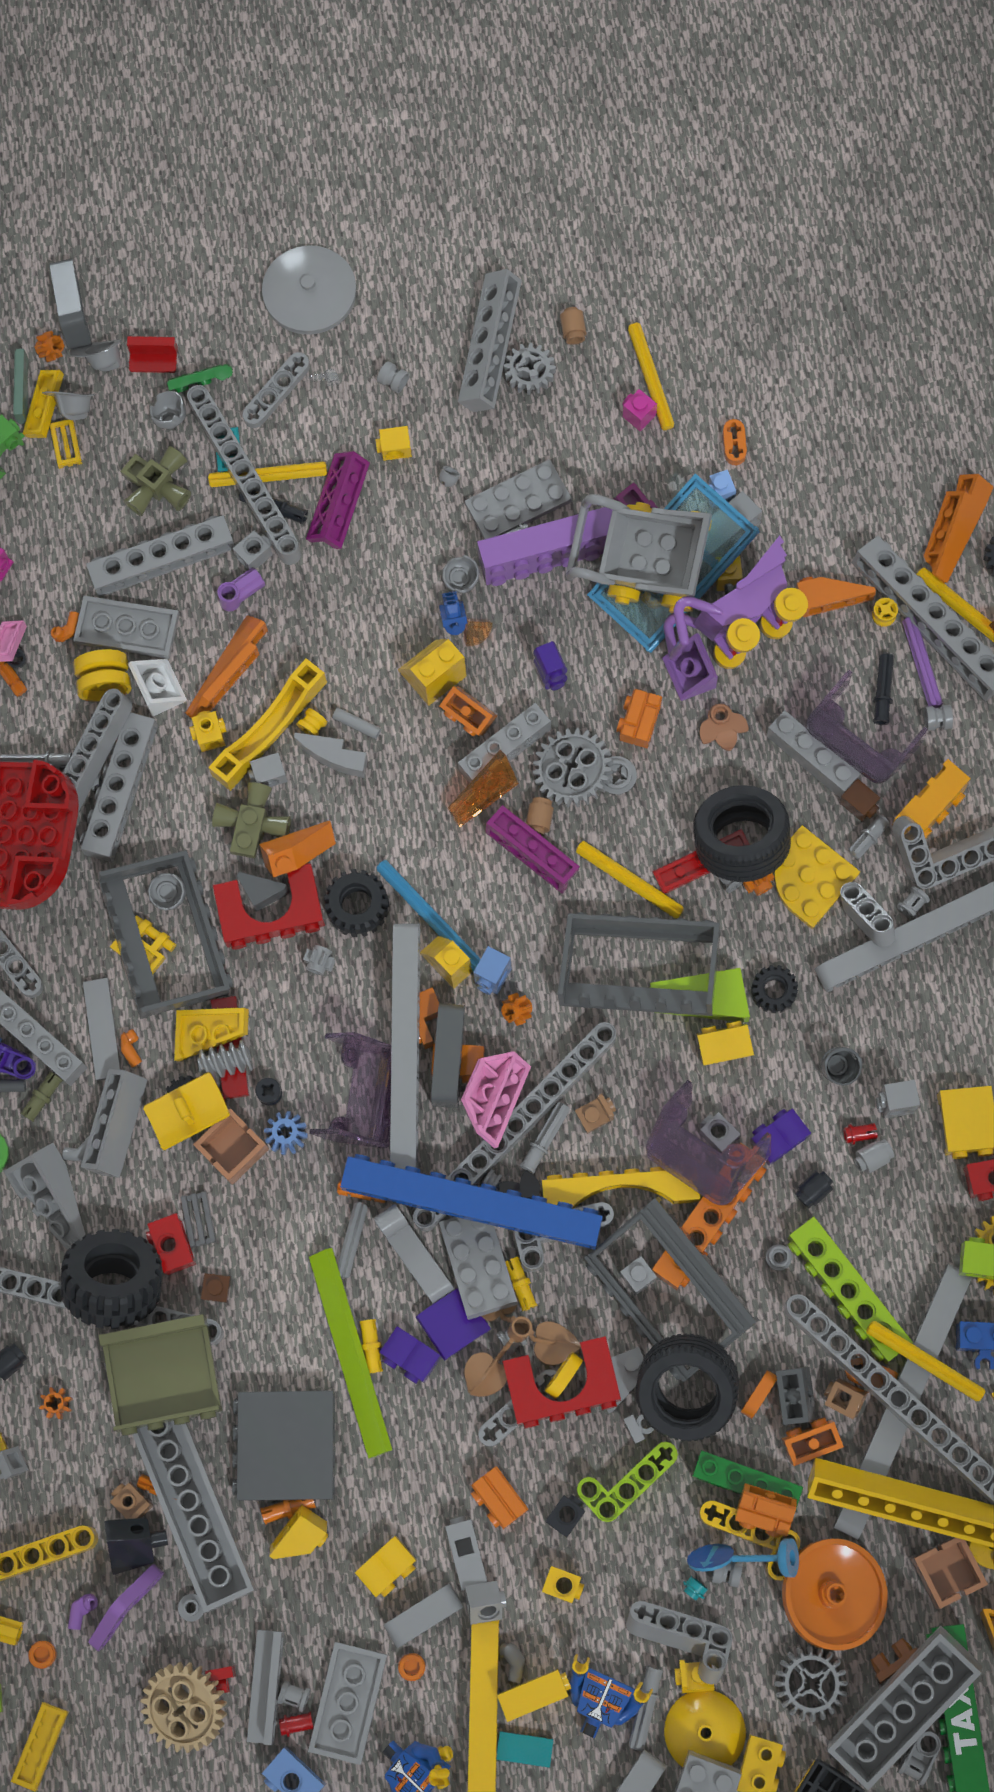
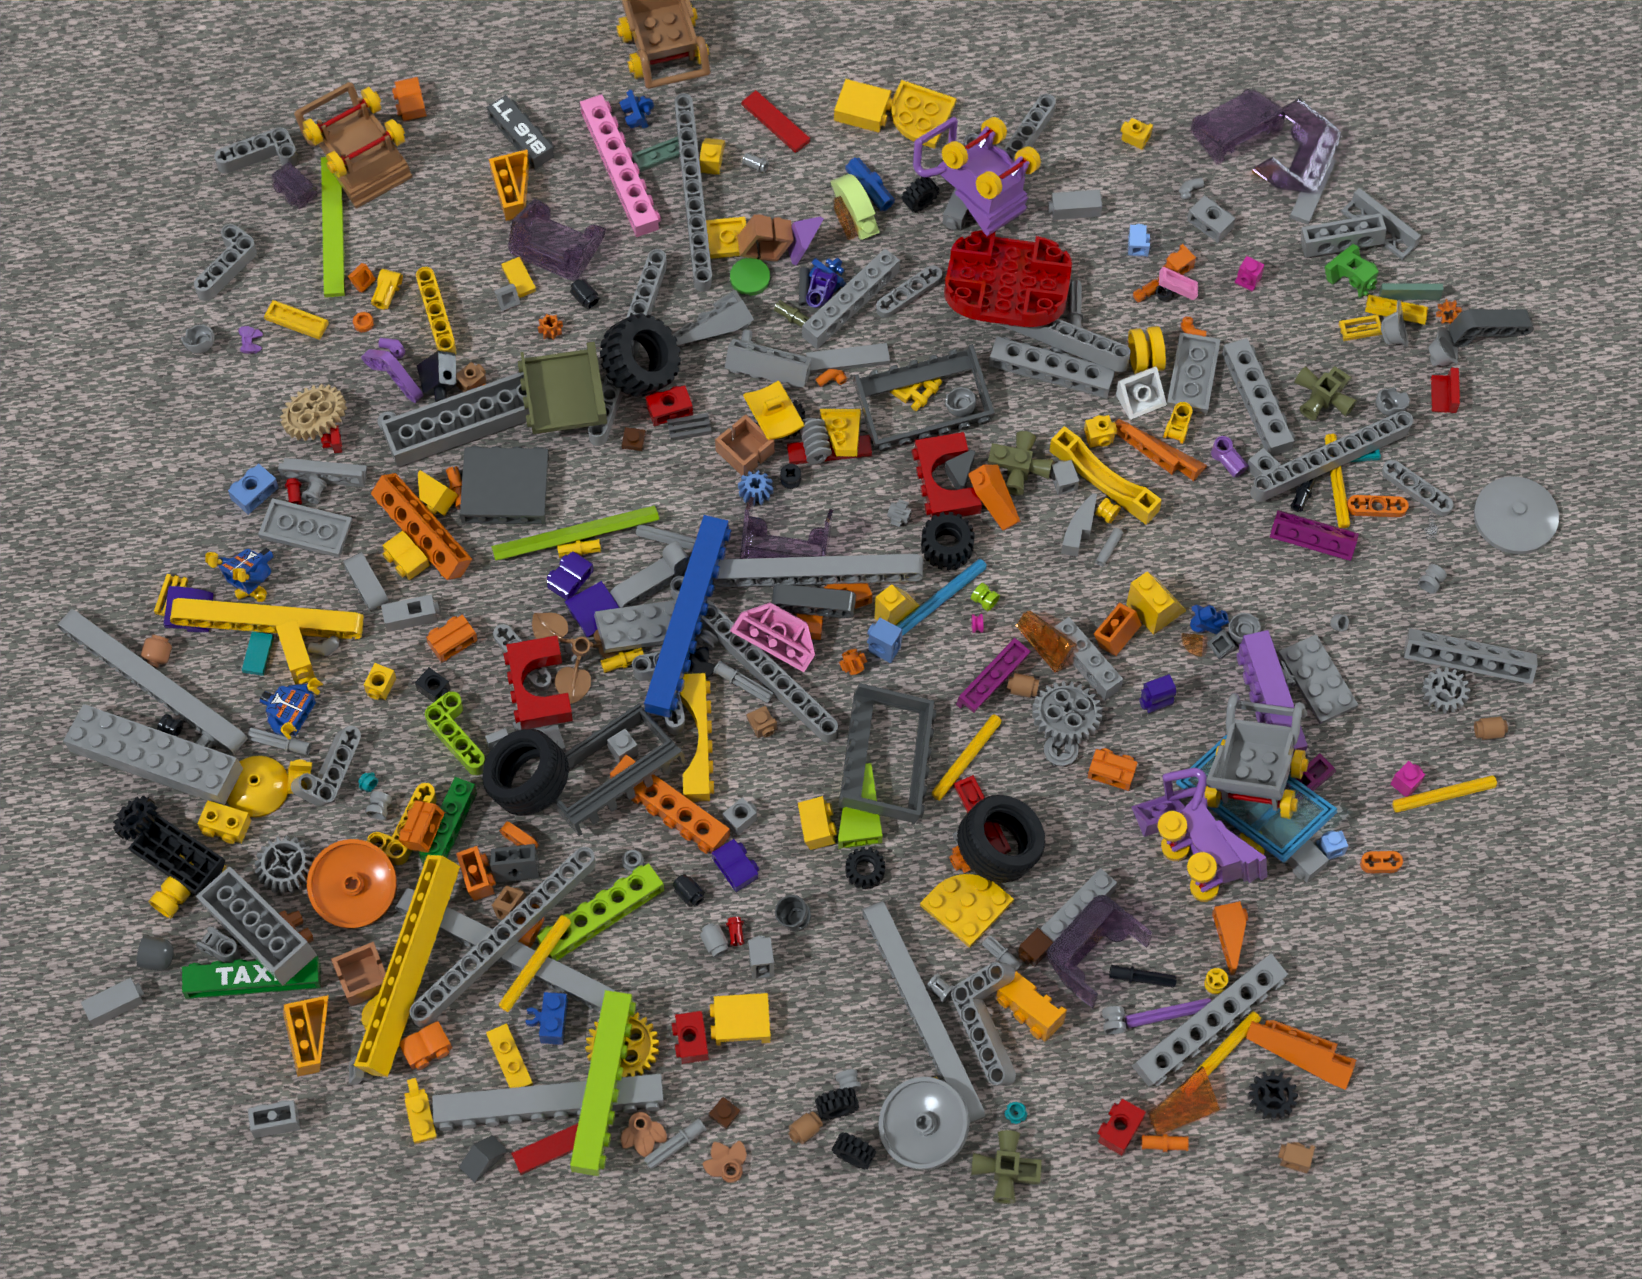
camera: 85 degrees right, 10 degrees down
(200, 377) = (1425, 427): green hinge -> none
(201, 644) = (1177, 425): none -> yellow piece
(305, 424) = (1383, 500): none -> orange beam
(347, 1549) = (421, 526): none -> orange brick
(394, 443) = (1368, 578): yellow brick -> none
(411, 1667) = (328, 574): orange tile -> none
(427, 860) = (985, 596): none -> lime wheel
(461, 869) = (977, 623): none -> dark pink bush
(477, 600) = (1222, 644): none -> dark grey slope
(484, 1602) = (370, 621): light grey brick -> none
(563, 1375) = (542, 683): yellow beam -> none
(695, 1162) = (698, 802): clear purple windscreen -> none
(719, 1555) = (380, 836): dark azure piece -> none
(724, 730) = (1102, 839): nougat plate -> none
(876, 918) = (927, 942): light grey beam -> none

